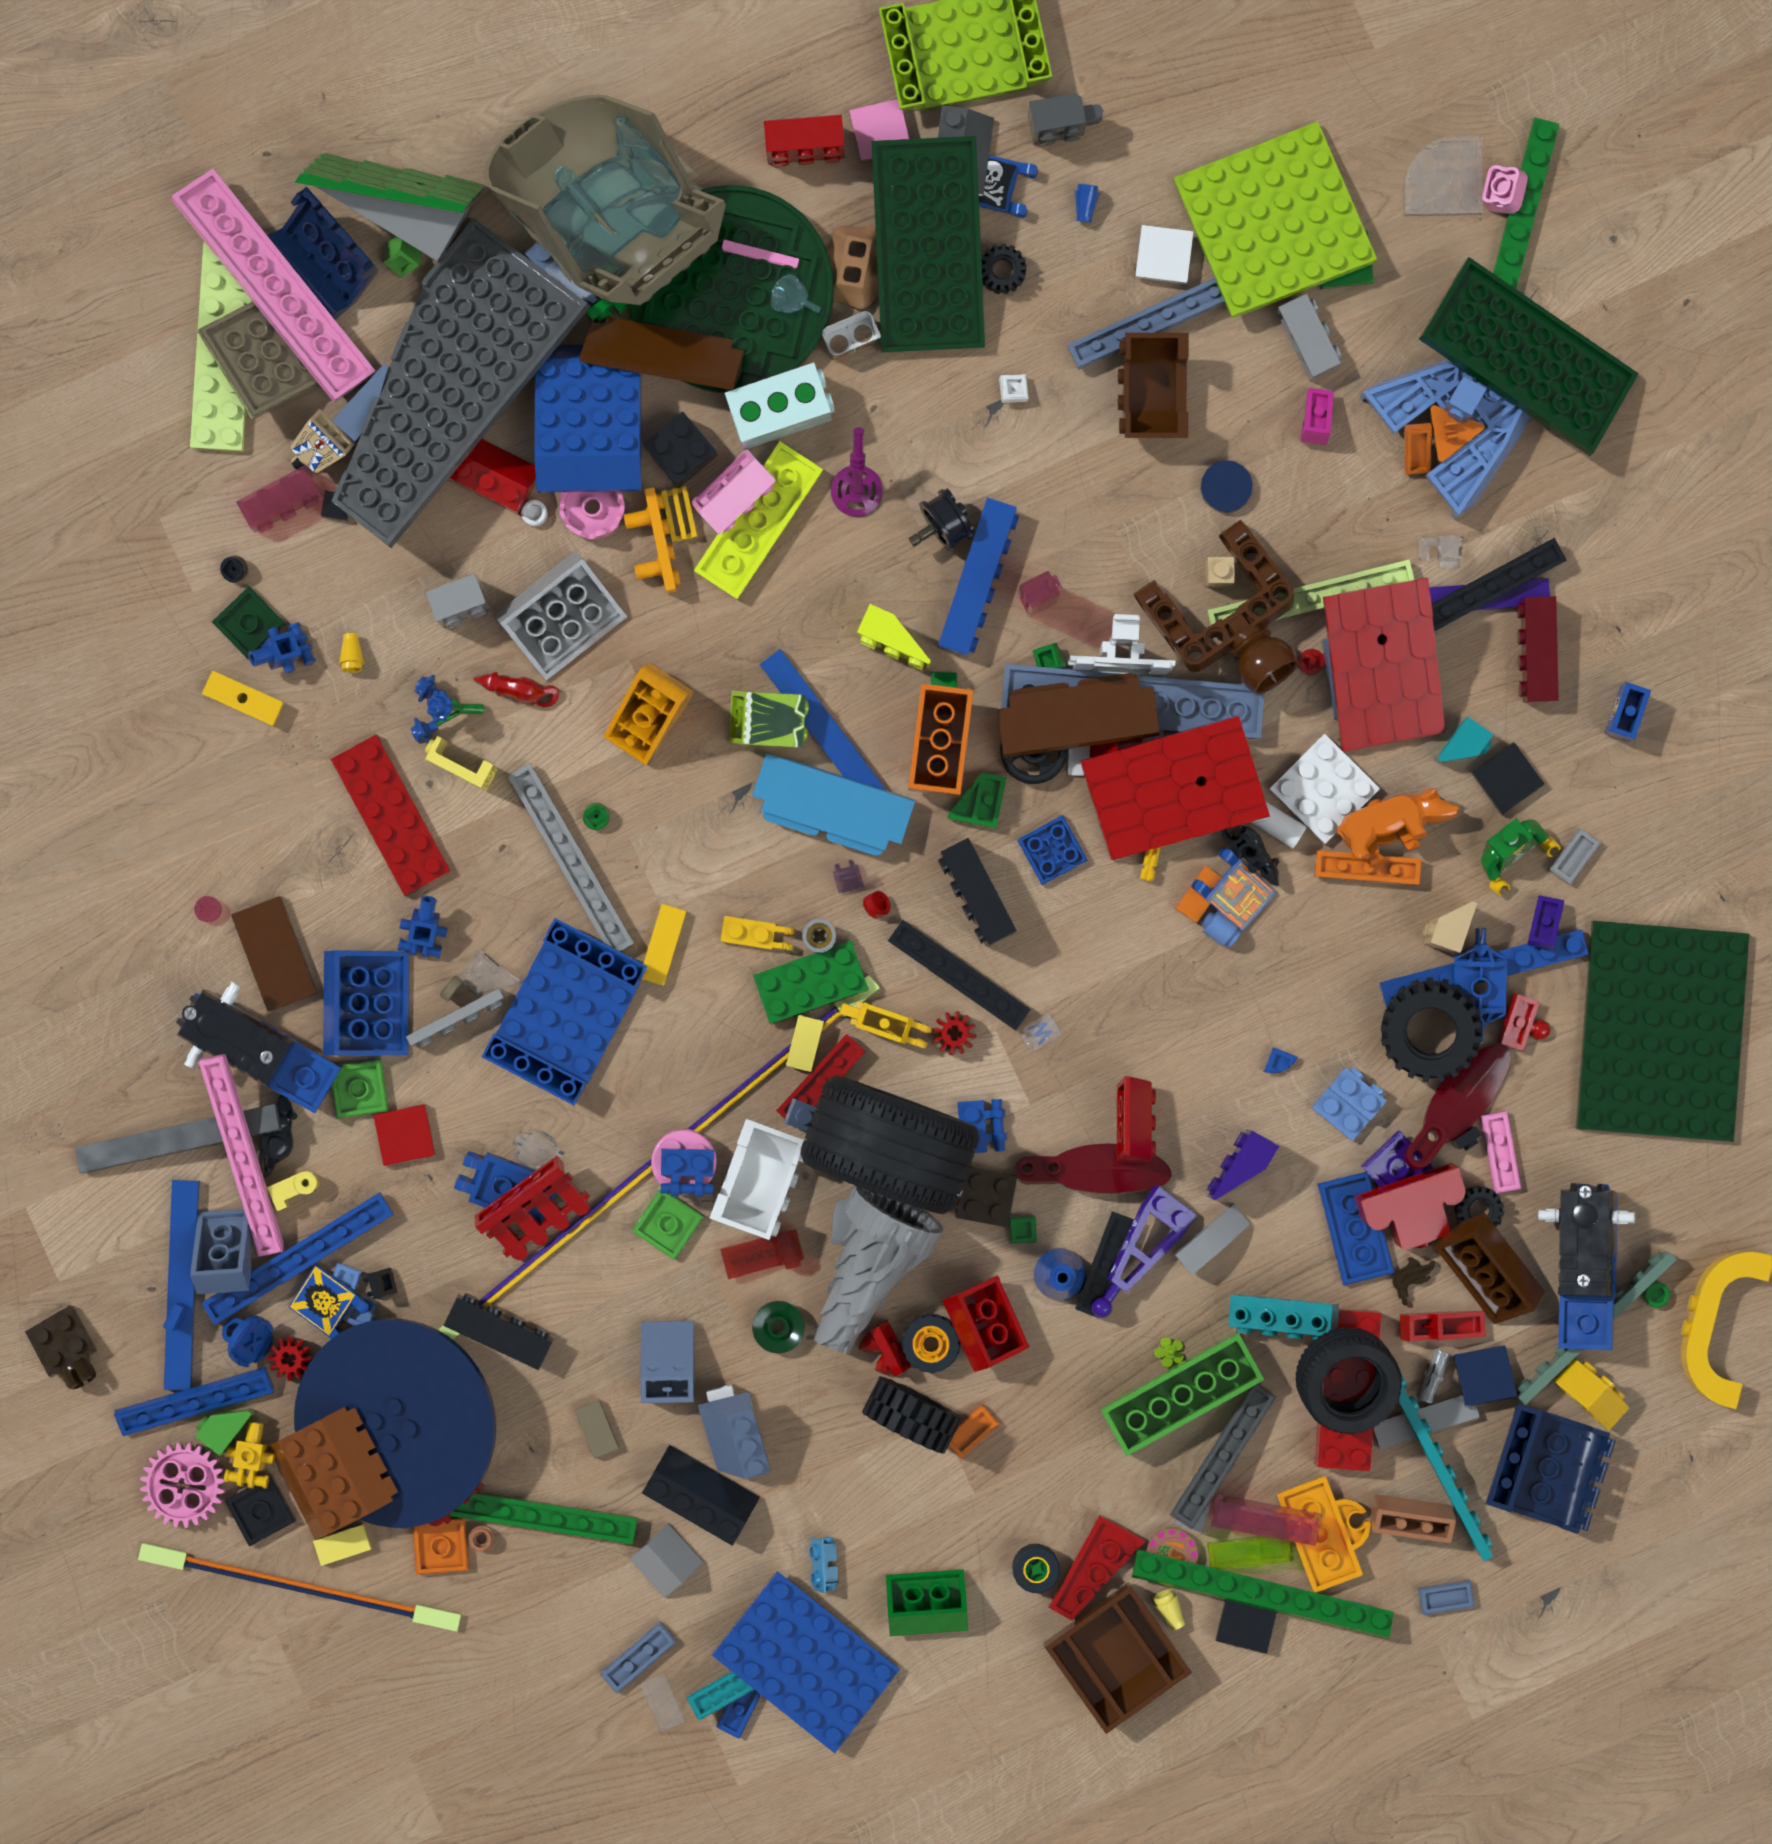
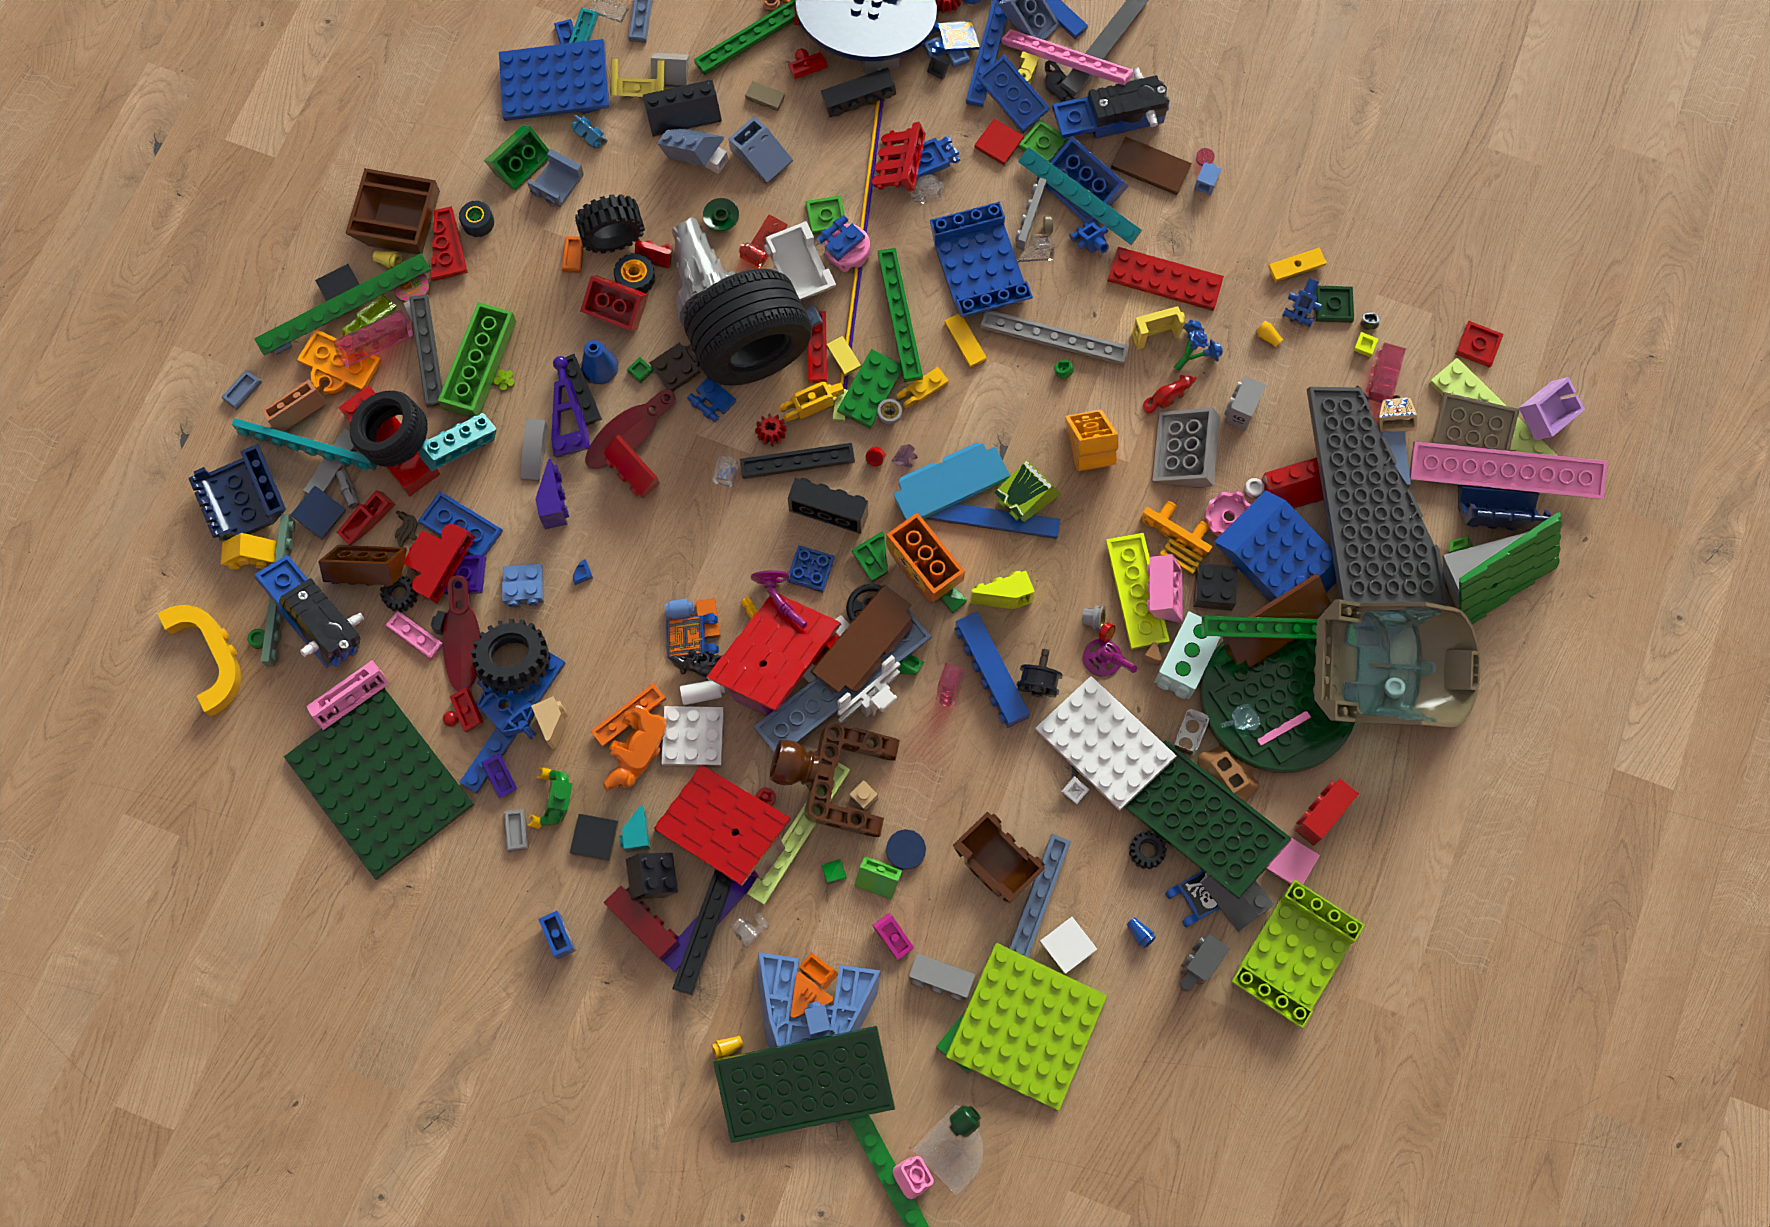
camera: 130 degrees right, 15 degrees down
(149, 441) = (1479, 344): none -> red tile
(164, 300) = (1548, 413): none -> lavender piece
(232, 880) = (1207, 178): none -> medium blue brick
(266, 548) = (1365, 344): none -> neon yellow plate
(337, 1171) = (1013, 93): none -> blue tile
(388, 987) = (1080, 196): none -> teal plate
(519, 1422) = (806, 64): none -> red plate
(613, 190) = (1394, 687): none -> light aqua tile
(690, 355) = (1258, 627): none -> green plate
(704, 1033) = (900, 315): none -> green plate
(724, 1569) = (635, 86): none -> light yellow plate
(808, 443) = (1153, 655): none -> medium nougat slope
(827, 532) = (1094, 617): none -> light grey piece
(830, 508) = (1106, 632): none -> red tile
(911, 1537) = (556, 179): none -> sand blue panel
(941, 403) = (1105, 743): none -> white plate
(1109, 868) = (769, 580): none -> magenta dish
(1277, 484) = (878, 877): none -> bright green panel
(1313, 530) = (834, 871): none -> green slope
(1415, 188) = (964, 1121): none -> dark green head
(1491, 682) = (651, 875): none -> black brick
(1564, 462) = (726, 1047): none -> yellow cone
(1620, 1144) = (347, 694): none -> bright pink brick

